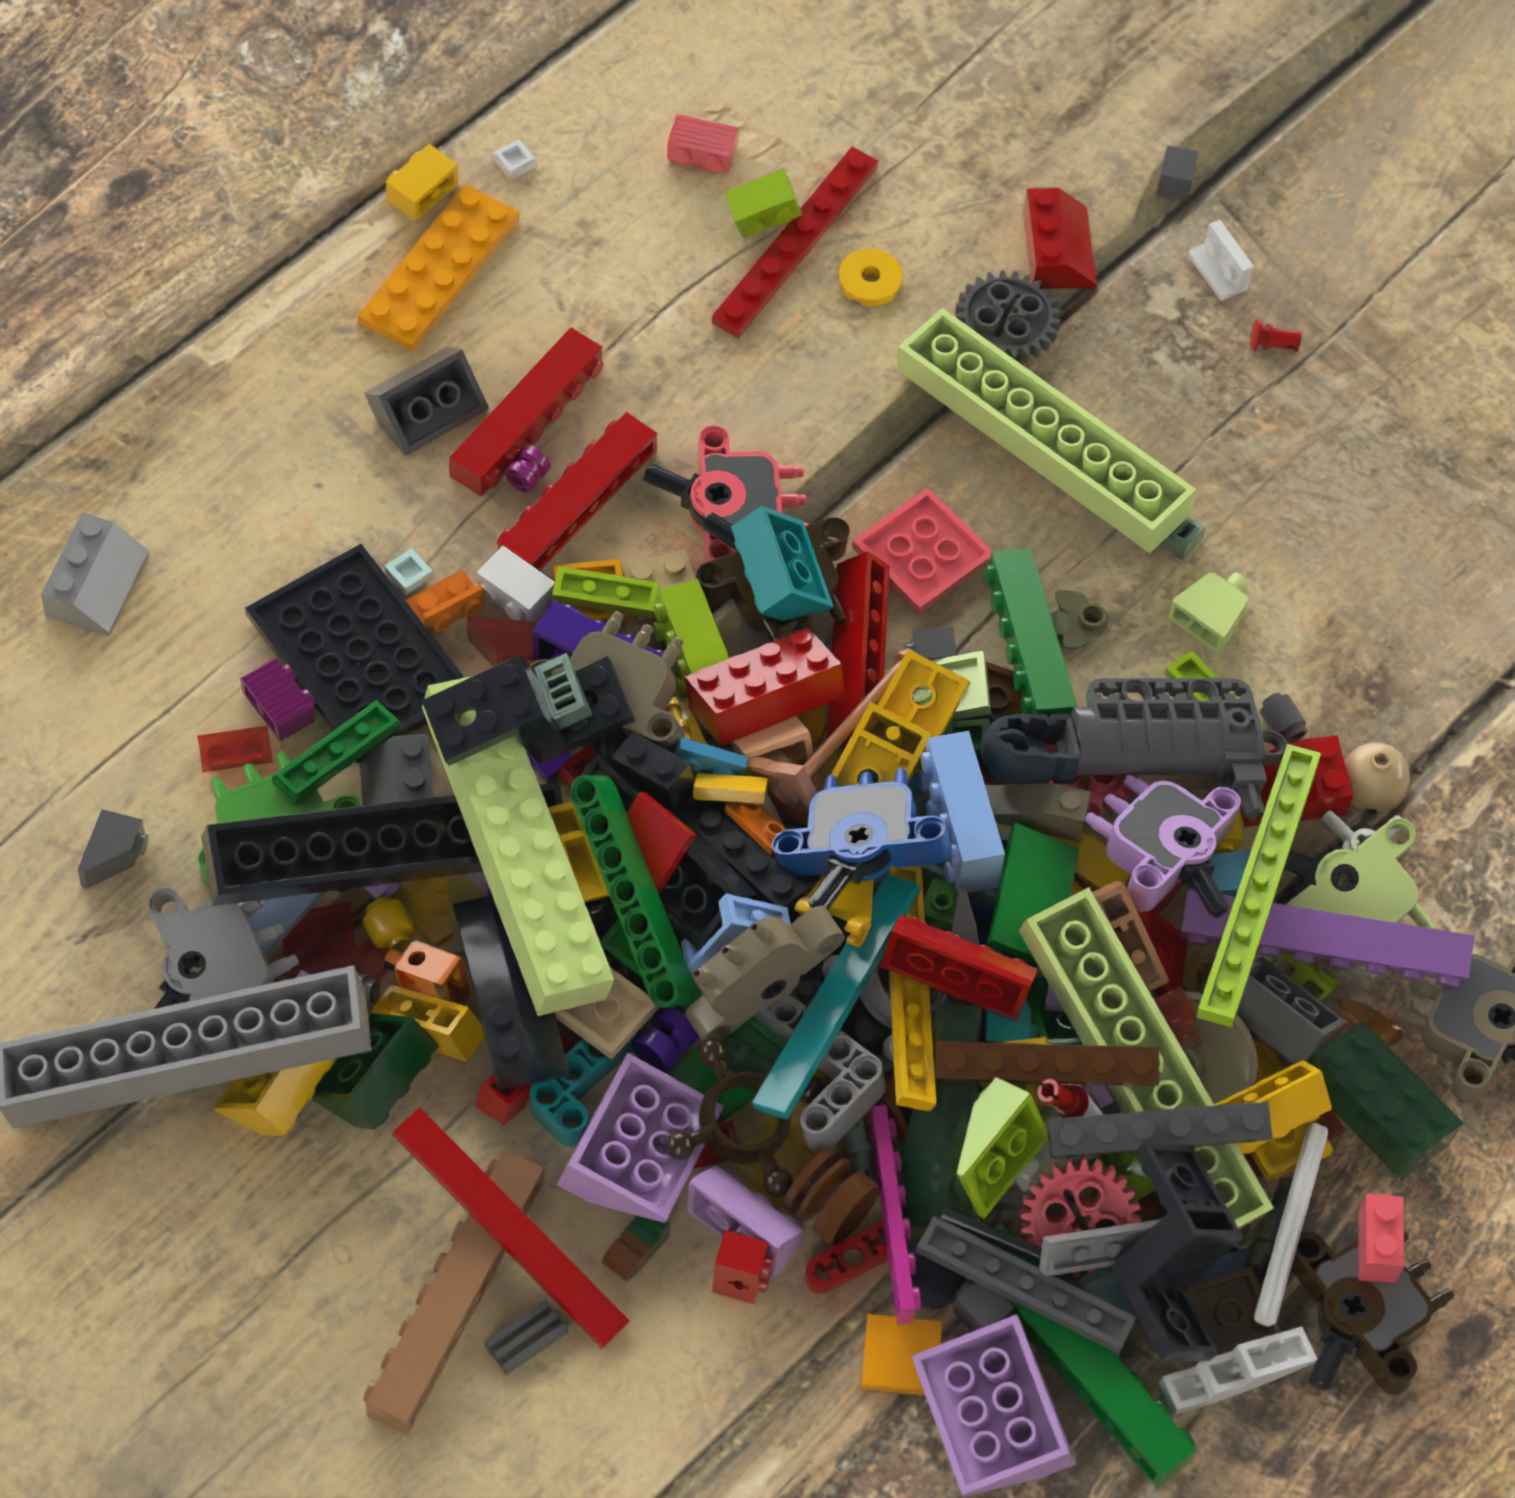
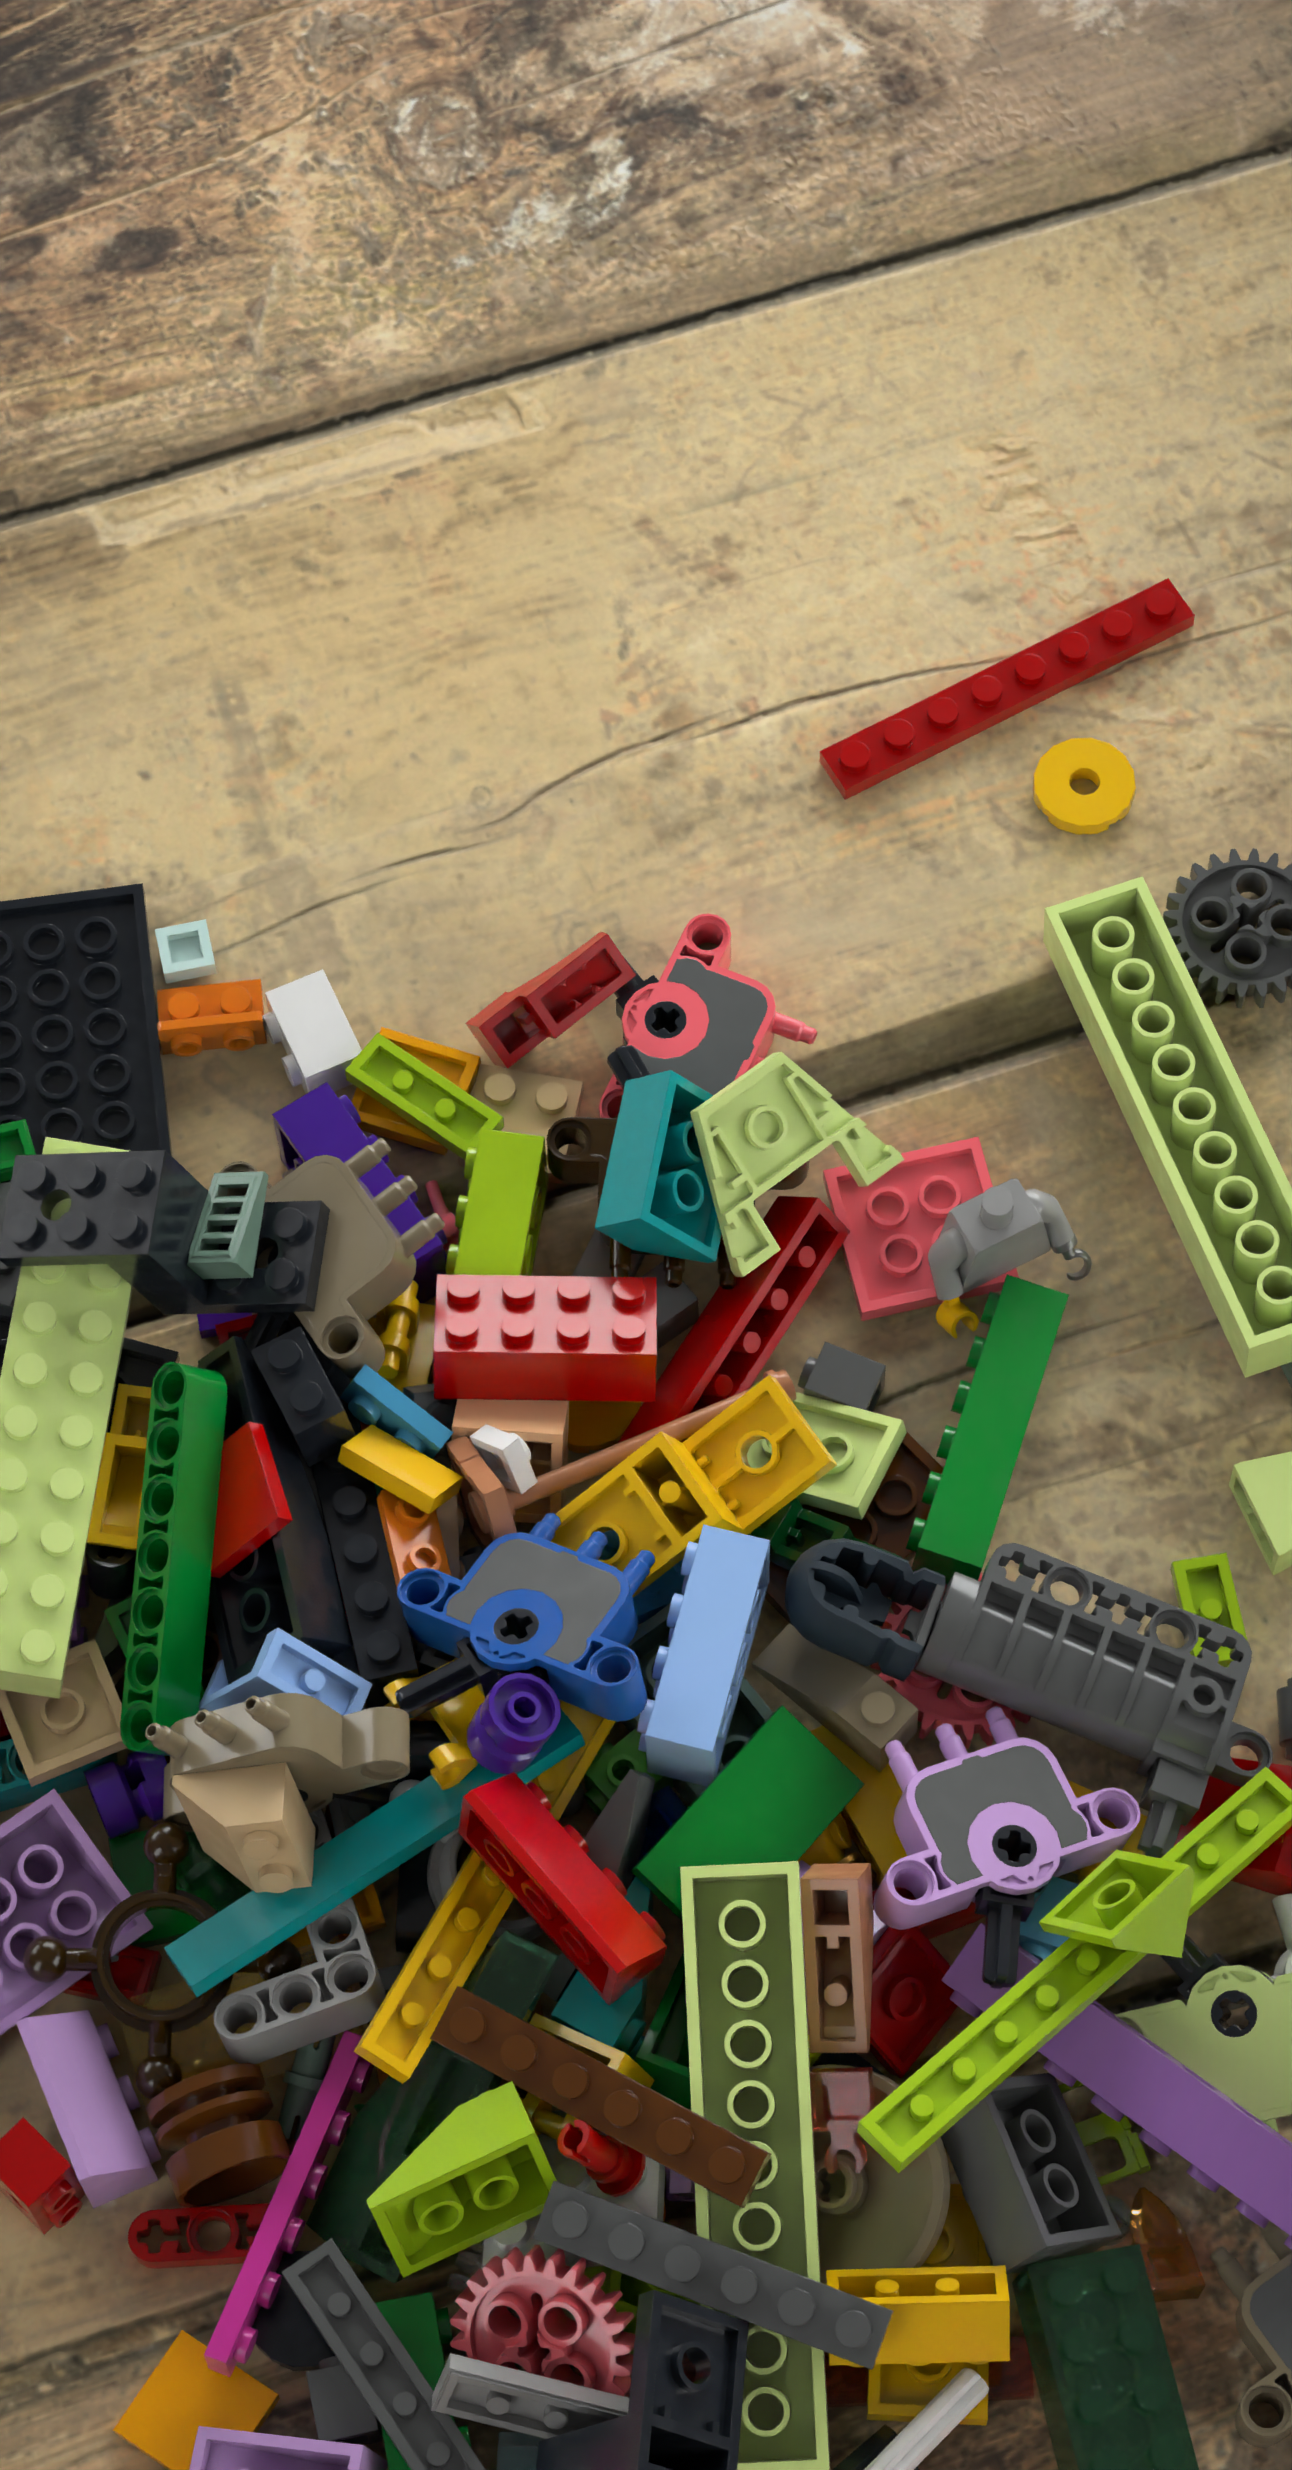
camera: 35 degrees right, 5 degrees up
(421, 182) = (526, 395): yellow brick -> none
(427, 399) = (352, 714): dark grey slope -> none
(438, 267) = (484, 526): light orange plate -> none
(501, 638) = (247, 1111): clear red slope -> none
(514, 159) = (679, 411): white tile -> none
(526, 412) = (477, 786): red brick -> none
(526, 471) = (430, 871): magenta wheel -> none
(580, 491) = (479, 937): red brick -> none
(645, 511) = (550, 1001): none -> red slope
(702, 143) = (951, 490): coral brick -> none
(763, 203) = (983, 614): lime brick -> none
(767, 1010) = (252, 1824): none -> tan slope
(784, 752) = (506, 1456): none -> white plate
(823, 525) = (761, 1134): none -> yellowish green wing
(885, 888) = (513, 1723): none -> dark purple wheel
(972, 536) = (993, 1237): none -> light grey torso
(991, 1234) = (397, 2299): black bar -> none
(1072, 616) = (1077, 1427): olive plate -> none
(1269, 836) = (1128, 1905): none -> lime slope

